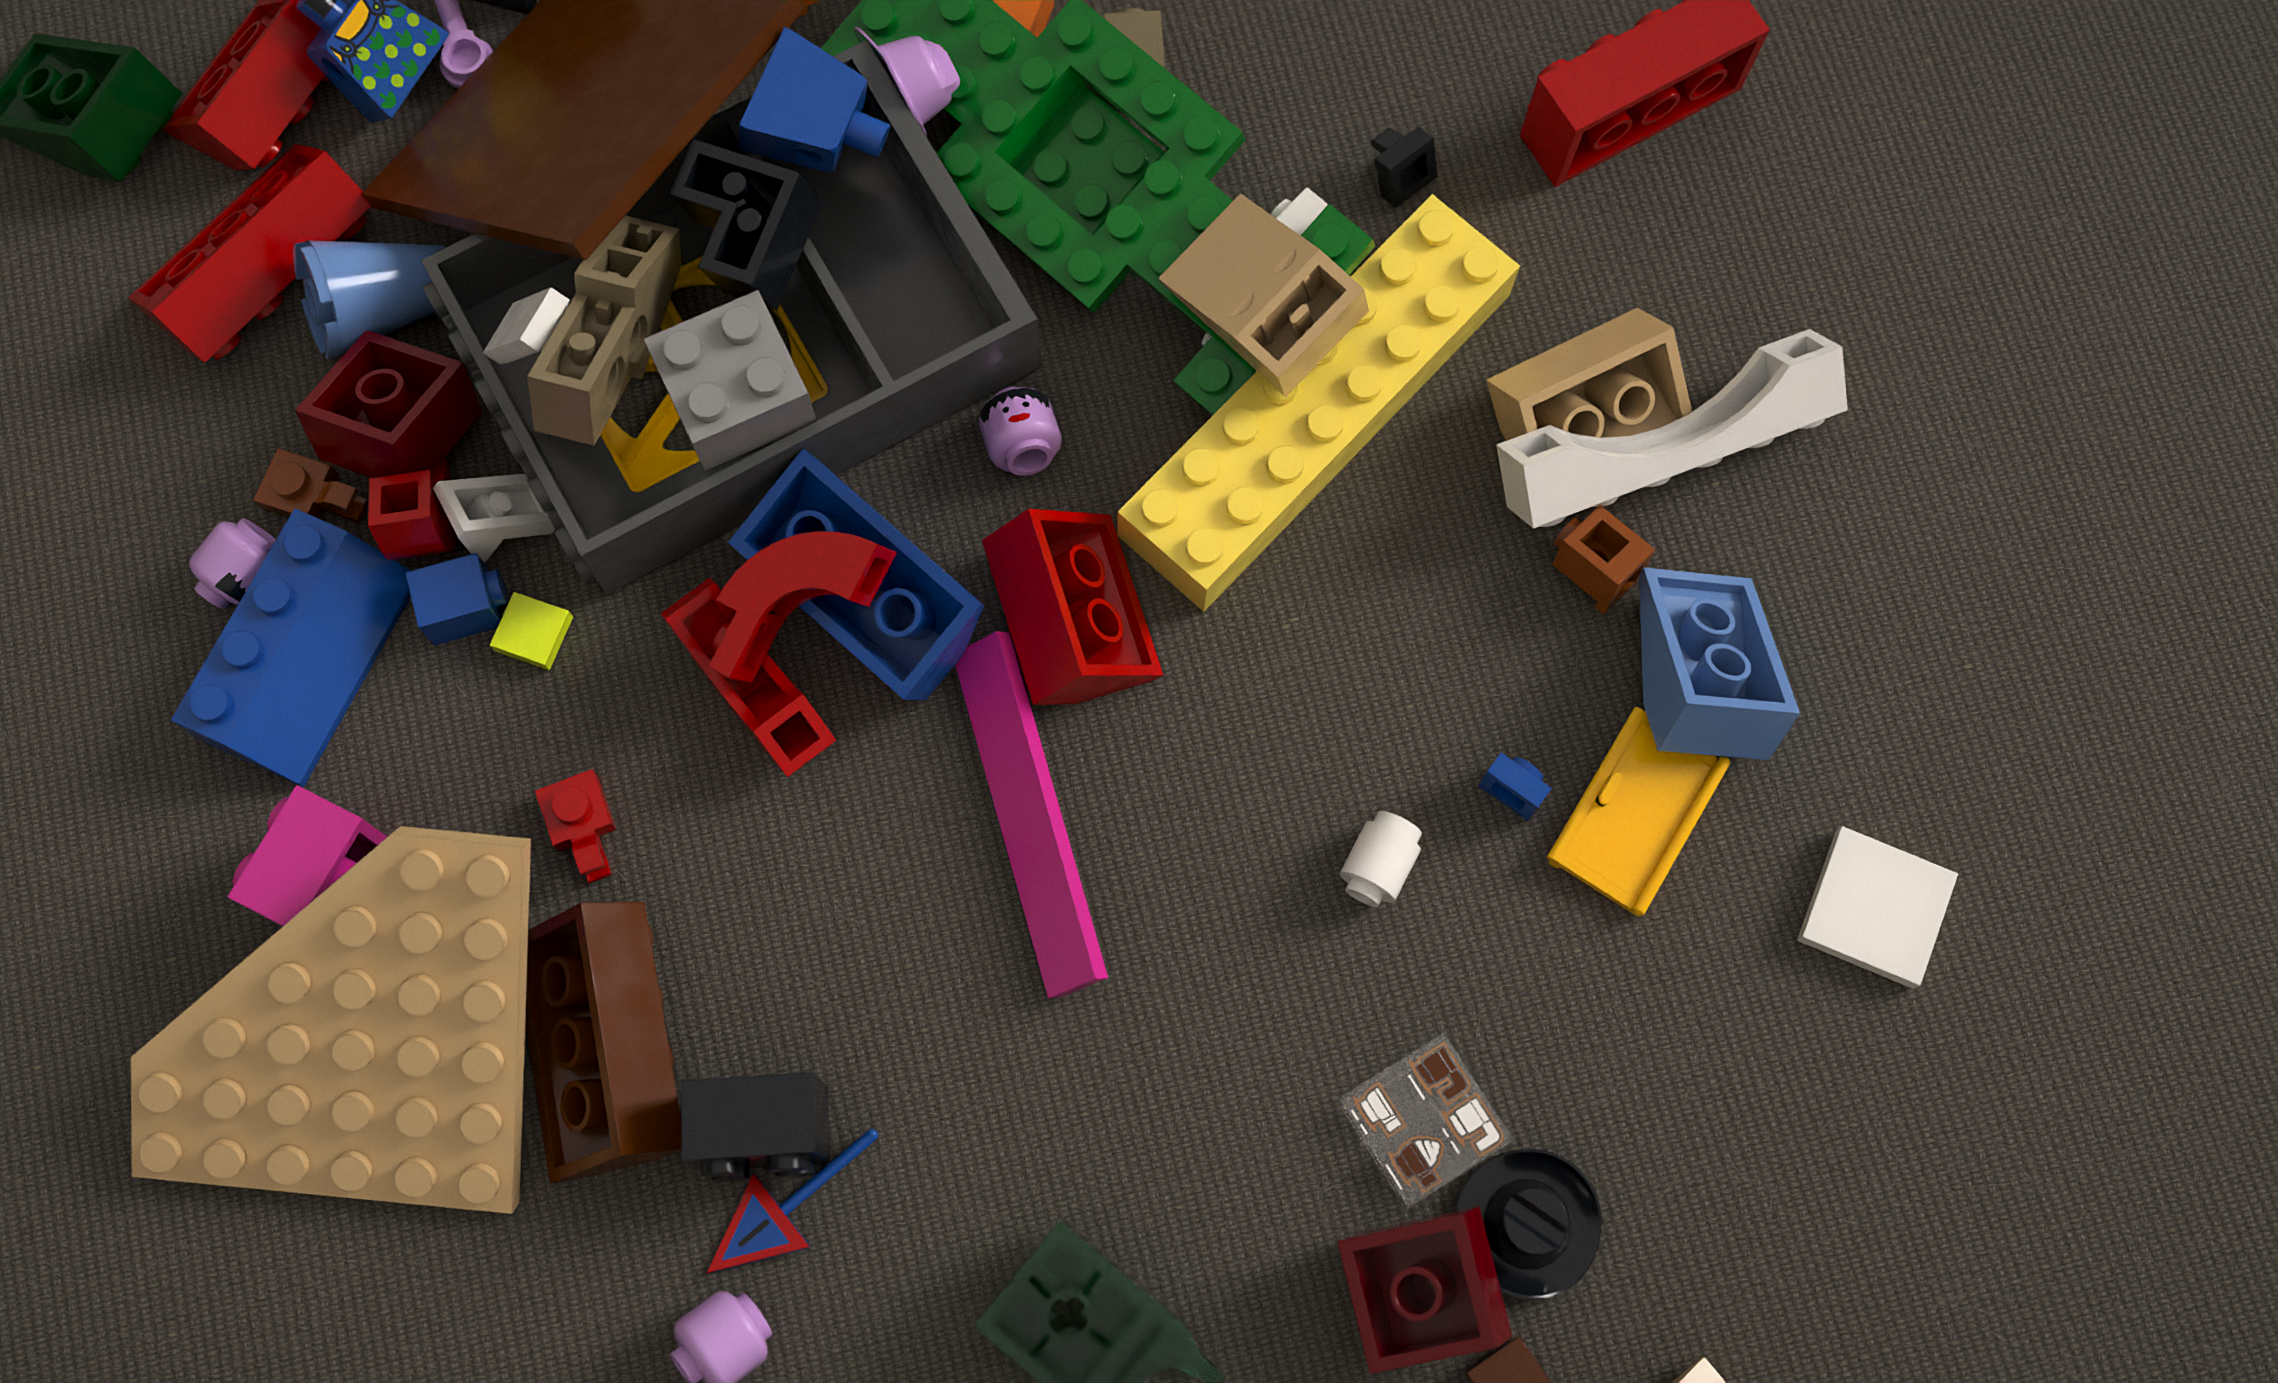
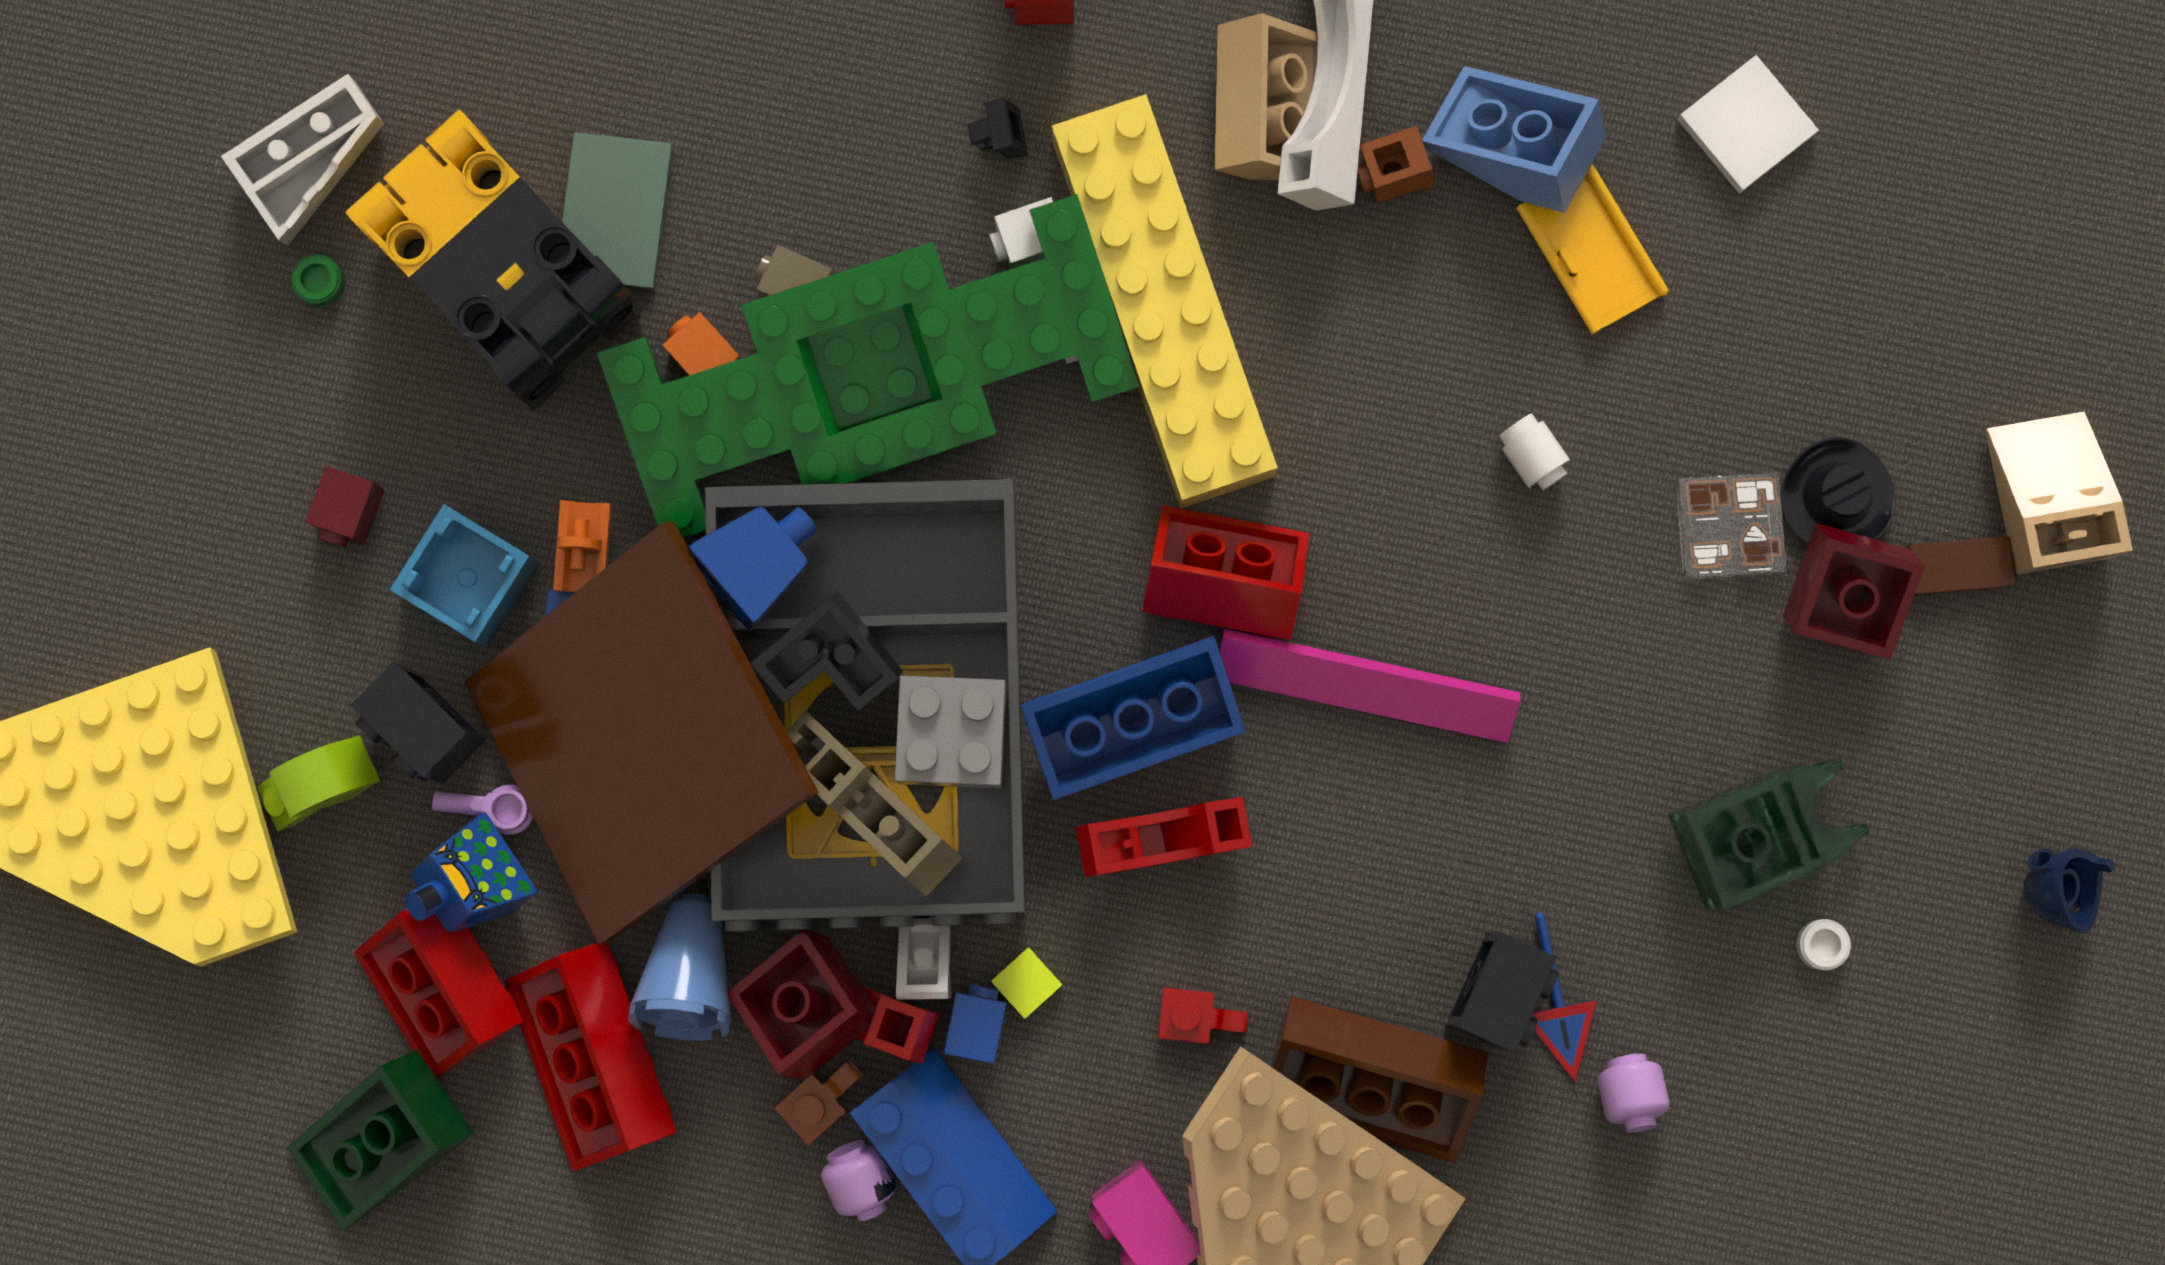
camera: 60 degrees left, 10 degrees up
(527, 326) = (831, 864): white tile -> none
(784, 578) = (1118, 750): red arch -> none
(919, 73) = (743, 460): lavender piece -> none
(1020, 430) = (1066, 537): lavender head -> none
(1266, 292) = (1079, 300): tan slope -> none
(1515, 784) = (1530, 325): blue plate -> none

